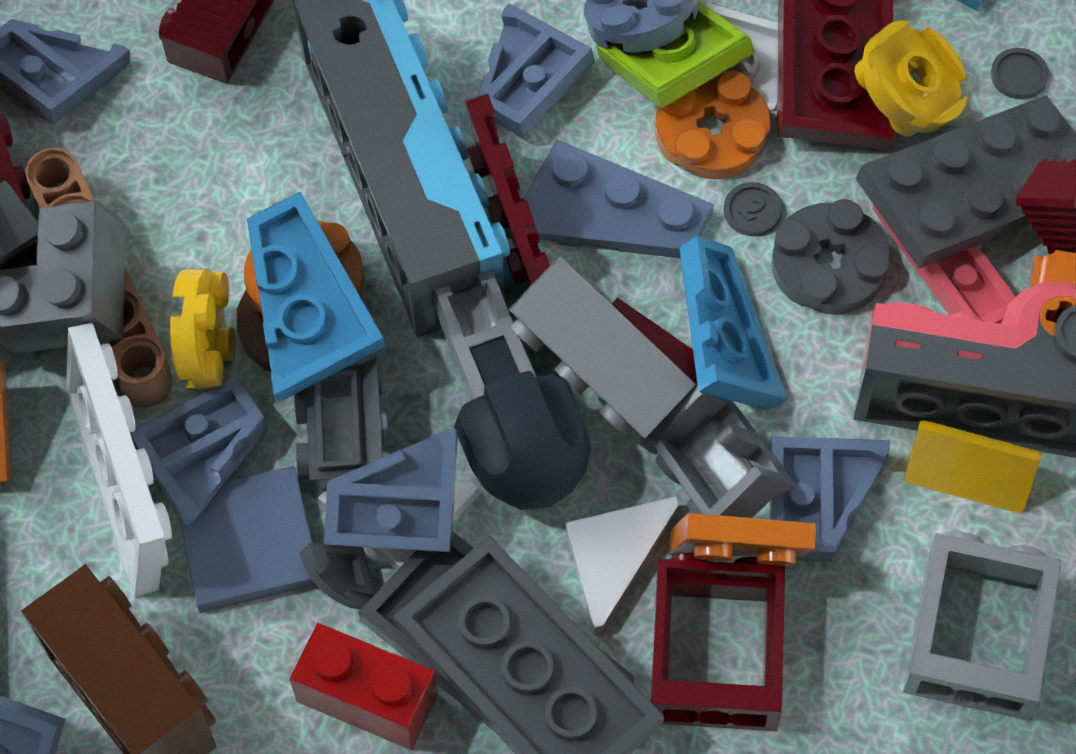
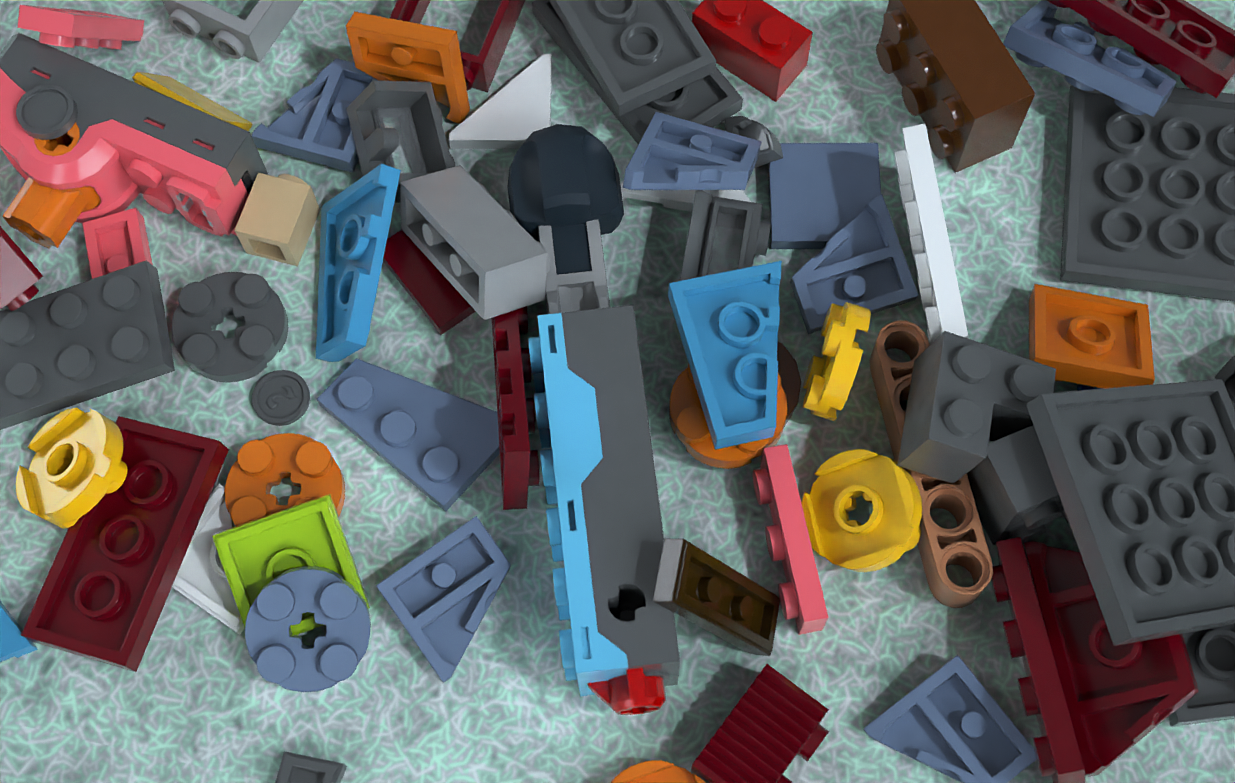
camera: 165 degrees left, 5 degrees up
(149, 234) = (891, 526): none -> yellow plate
(221, 175) = (790, 541): none -> coral plate
(273, 78) = (716, 597): none -> dark brown tile
(823, 362) = (278, 218): none -> tan brick

